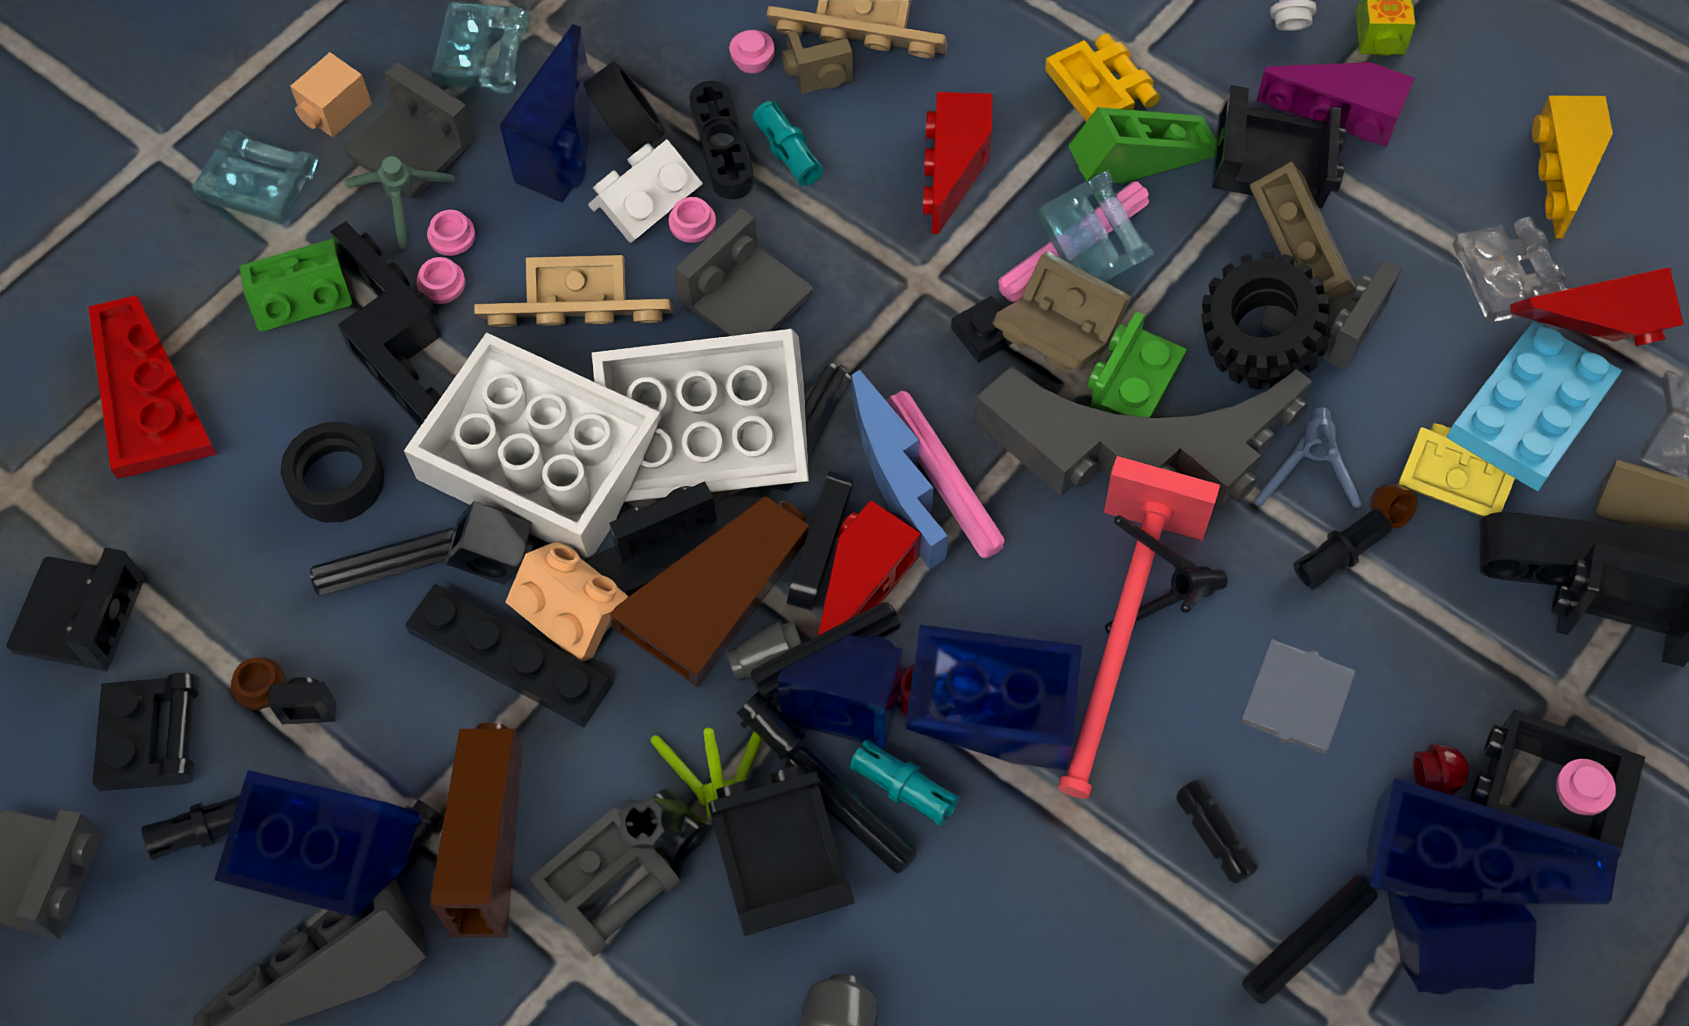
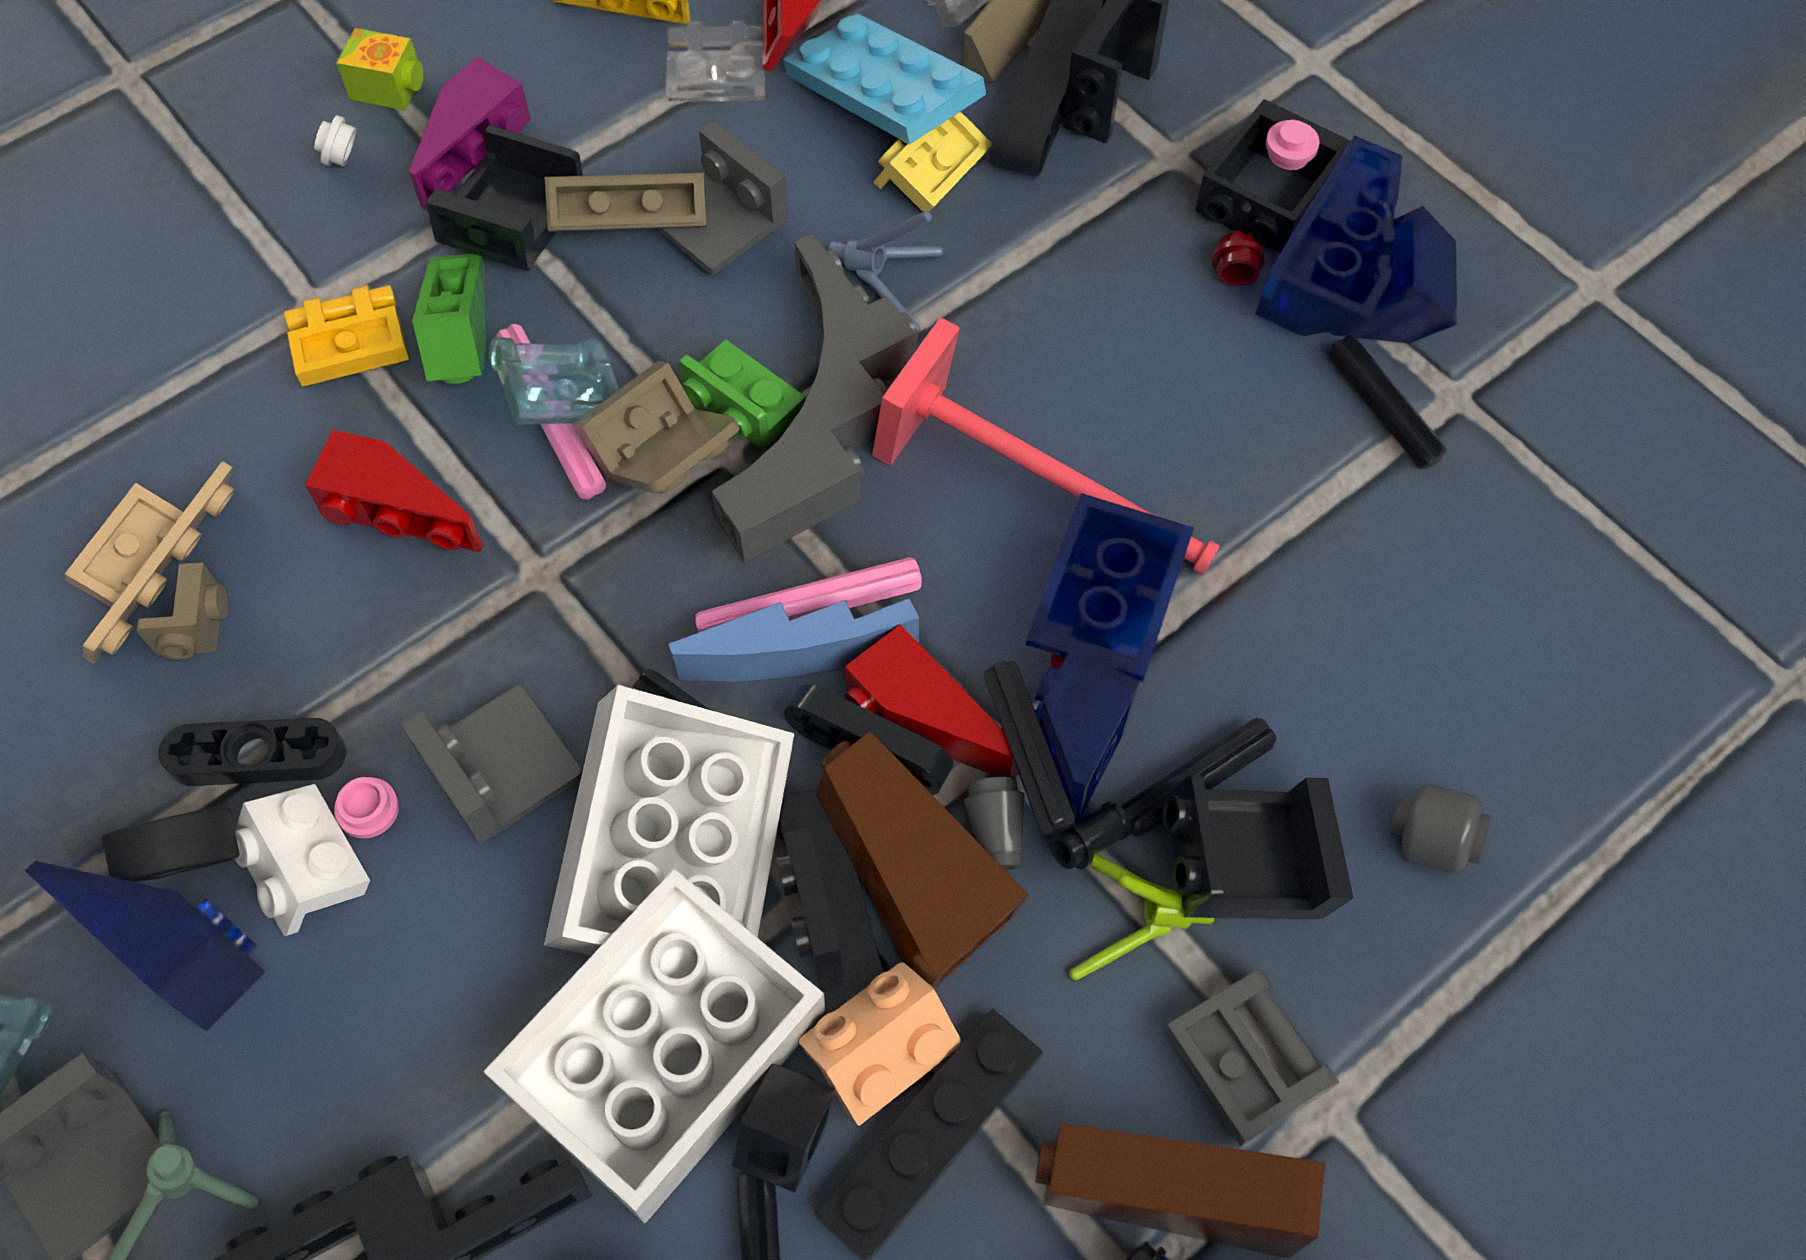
camera: 80 degrees left, 0 degrees up
(440, 280) = (340, 1150): bright pink plate -> none
(451, 233) = (266, 1125): bright pink plate -> none
(573, 289) = (425, 966): tan bracket -> none
(662, 824) = (1208, 967): black piece -> none
(752, 51) = (128, 689): bright pink plate -> none
(788, 143) = (292, 674): teal pin -> none
(904, 782) = (1178, 714): teal pin -> none
(977, 331) = (633, 522): black plate -> none
(1187, 582) = (1006, 402): black plant -> none
(1217, 831) = (1269, 448): black axle -> none
(1258, 285) = (735, 213): black tyre -> none
(1298, 696) = (1135, 351): clear piece -> none
(1341, 549) = (992, 269): black axle -> none
(1395, 503) = (953, 219): reddish brown hinge -> none

